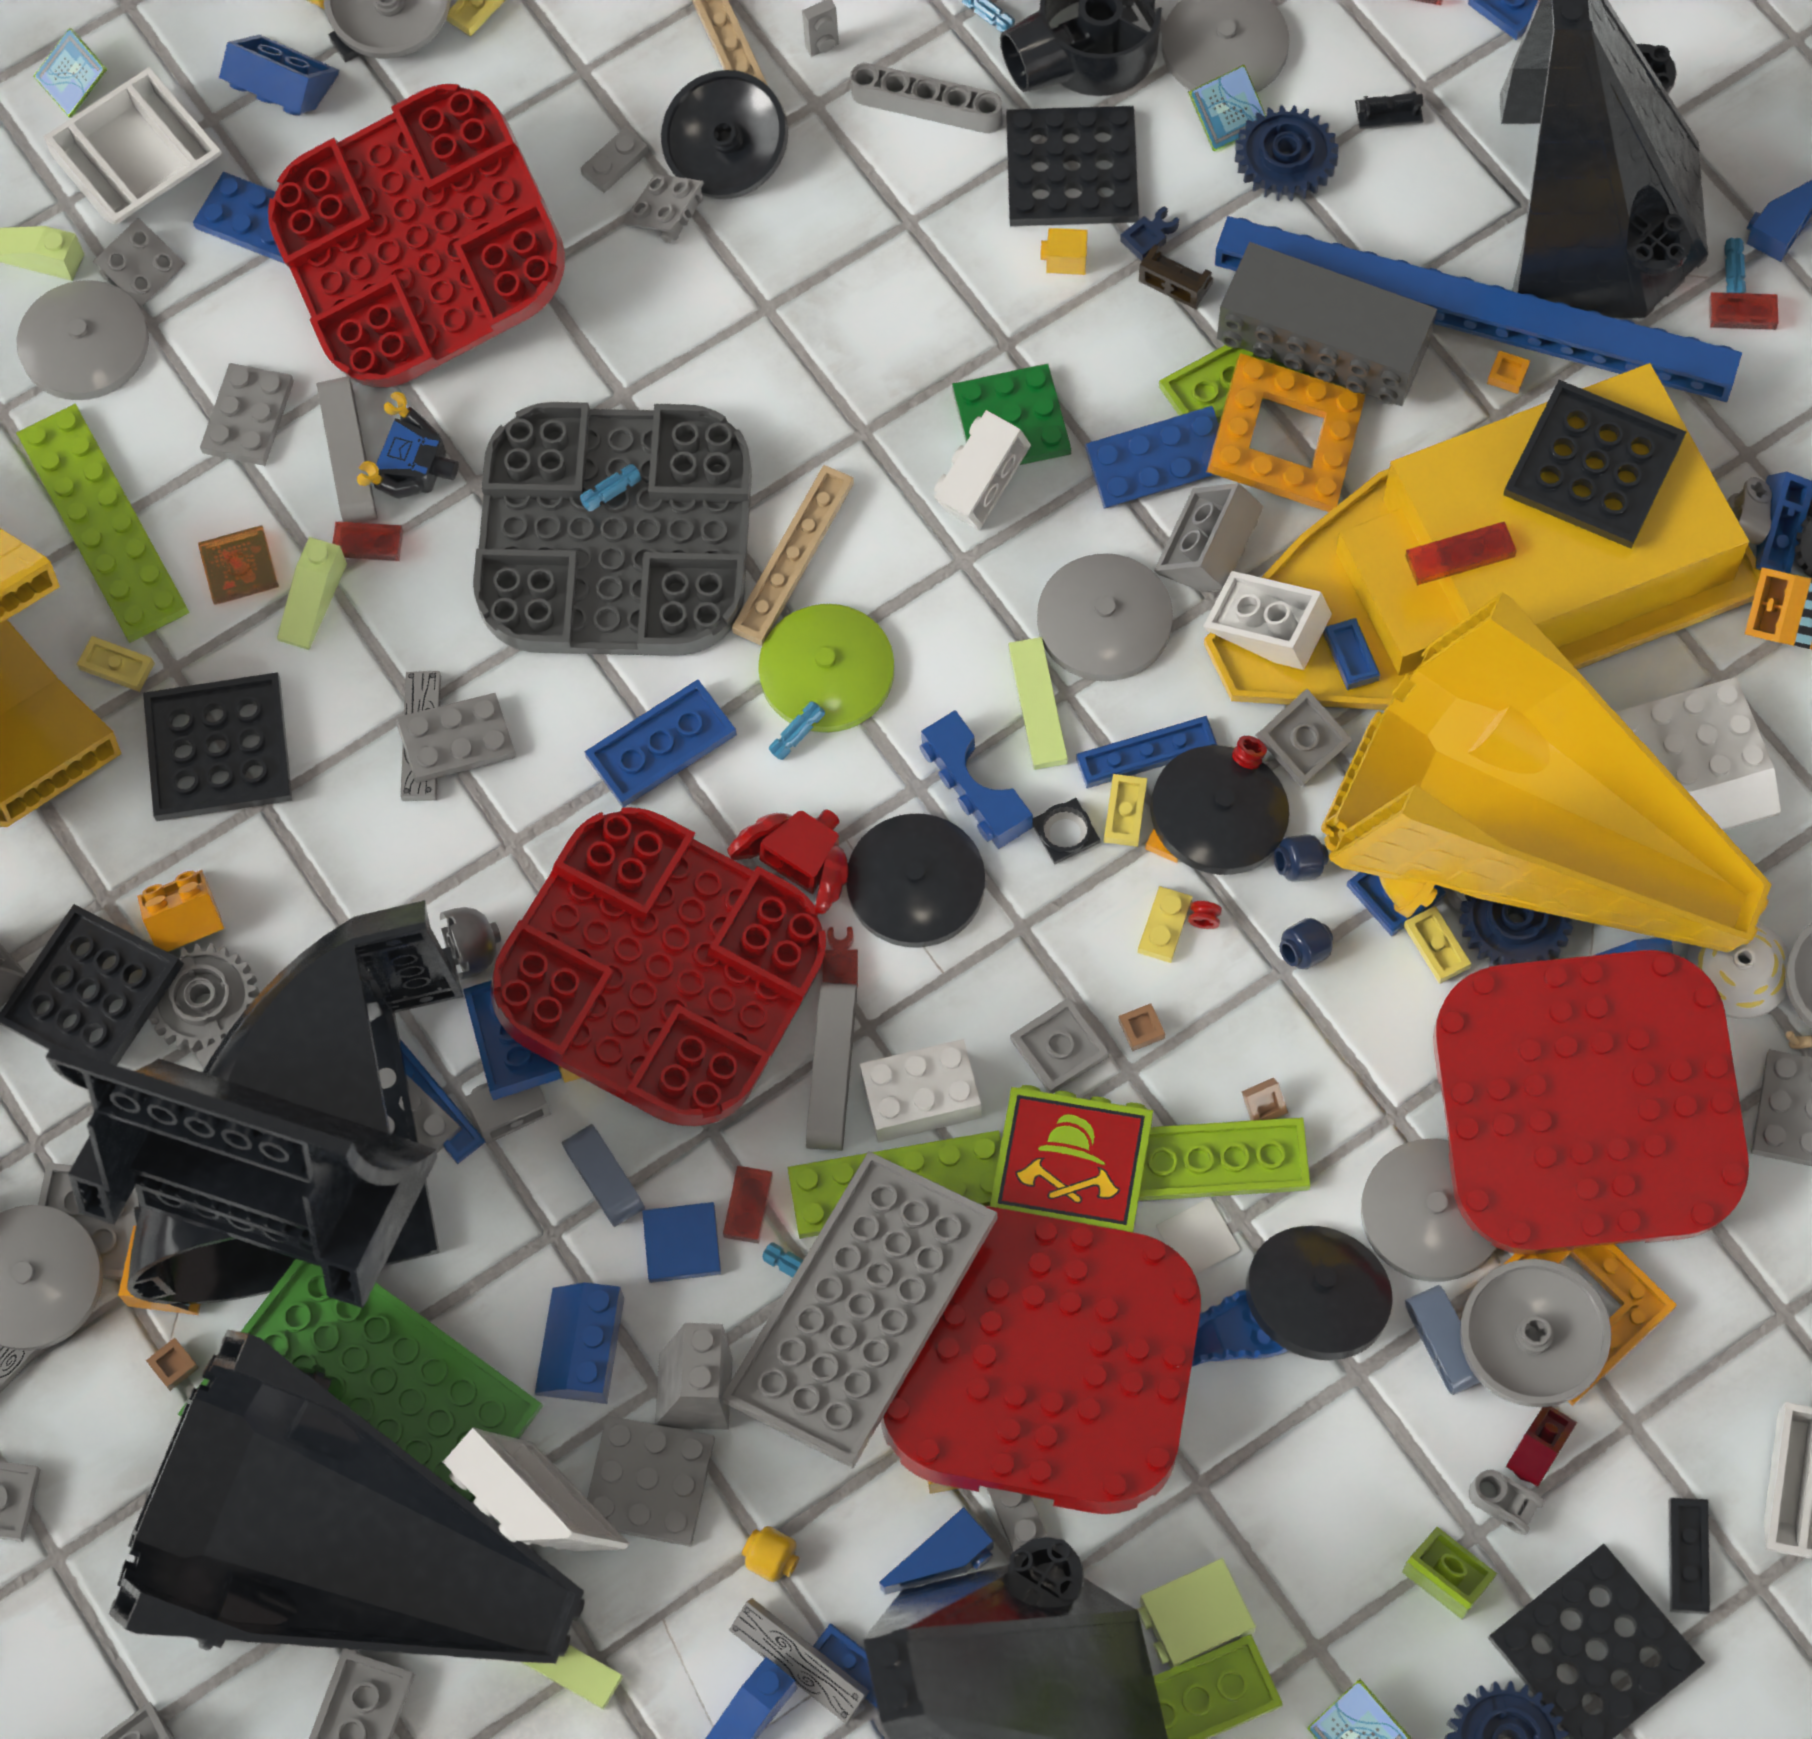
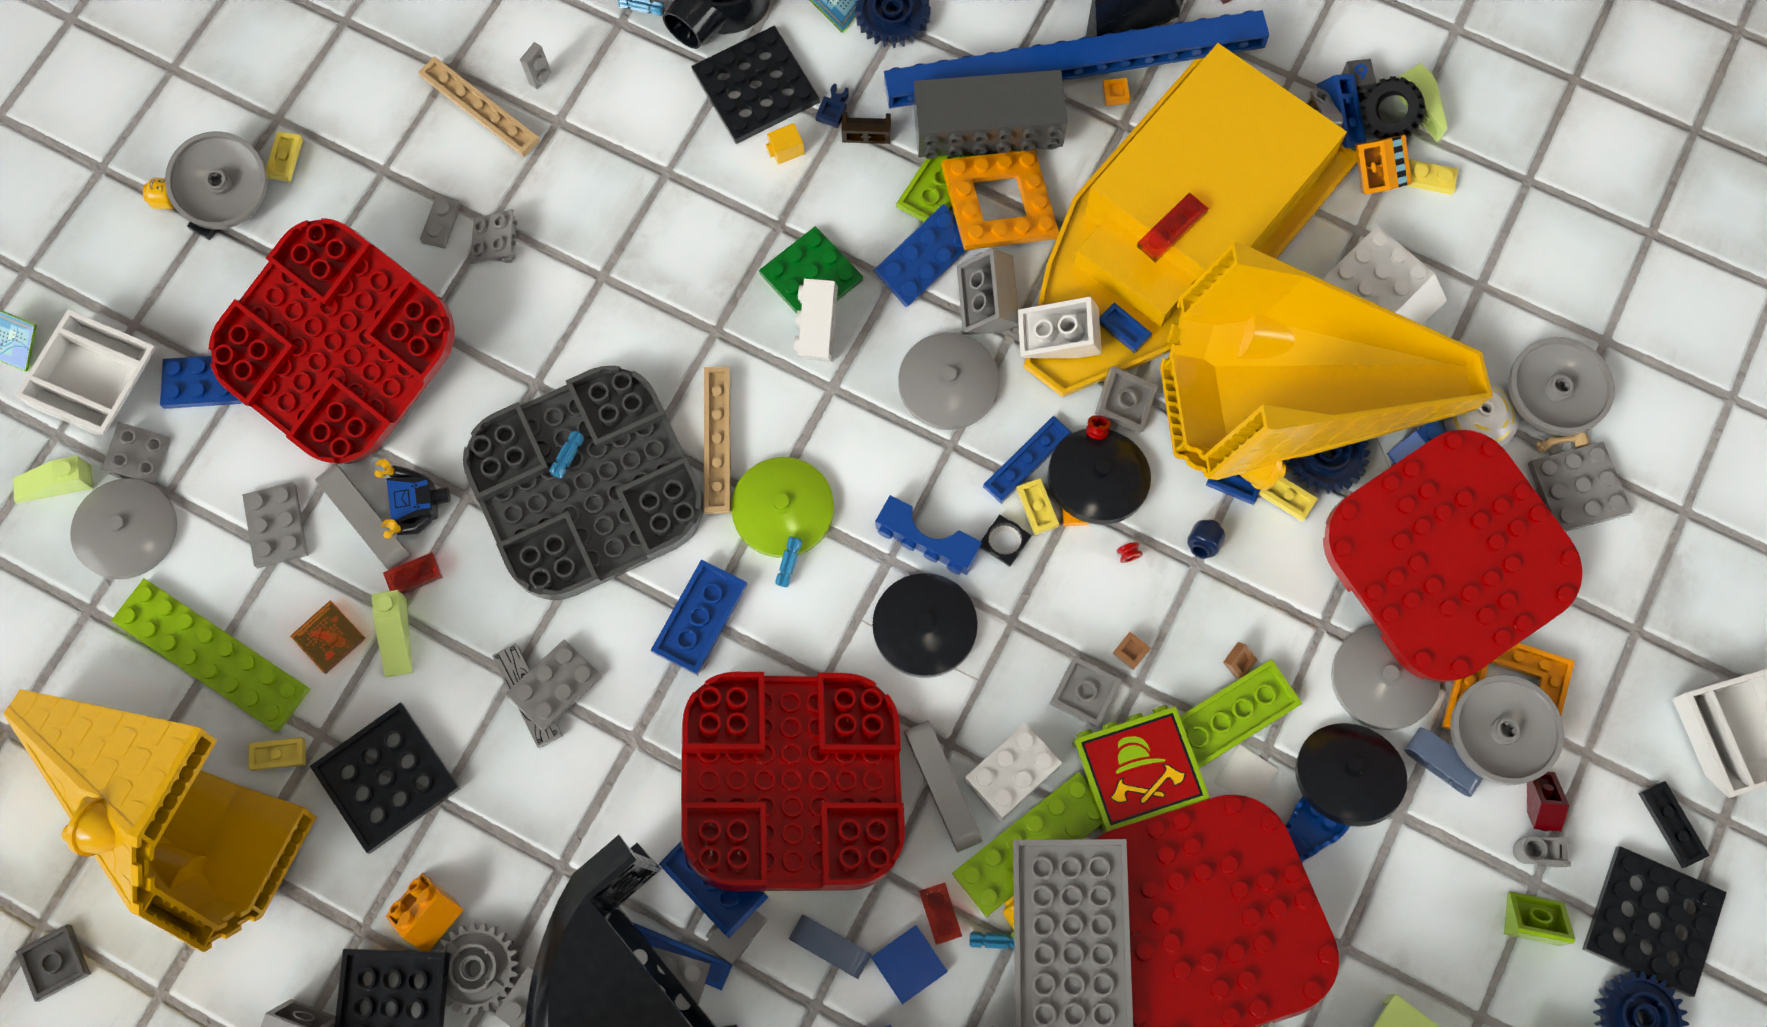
camera: 30 degrees left, 5 degrees up
(276, 73) = (164, 271): blue slope -> none
(470, 939) = (646, 827): flat silver cylinder -> none
(725, 133) = (509, 168): black dish -> none
(800, 850) = (838, 645): red torso -> none
(840, 963) = (908, 709): clear red plate -> none
(941, 96) = (621, 80): light grey beam -> none
(1037, 703) = (937, 461): yellowish green tile -> none
(1165, 924) = (1105, 571): light yellow plate -> none
(1301, 858) = (1169, 482): dark blue head -> none
(1617, 456) = (1215, 160): black piece -> none

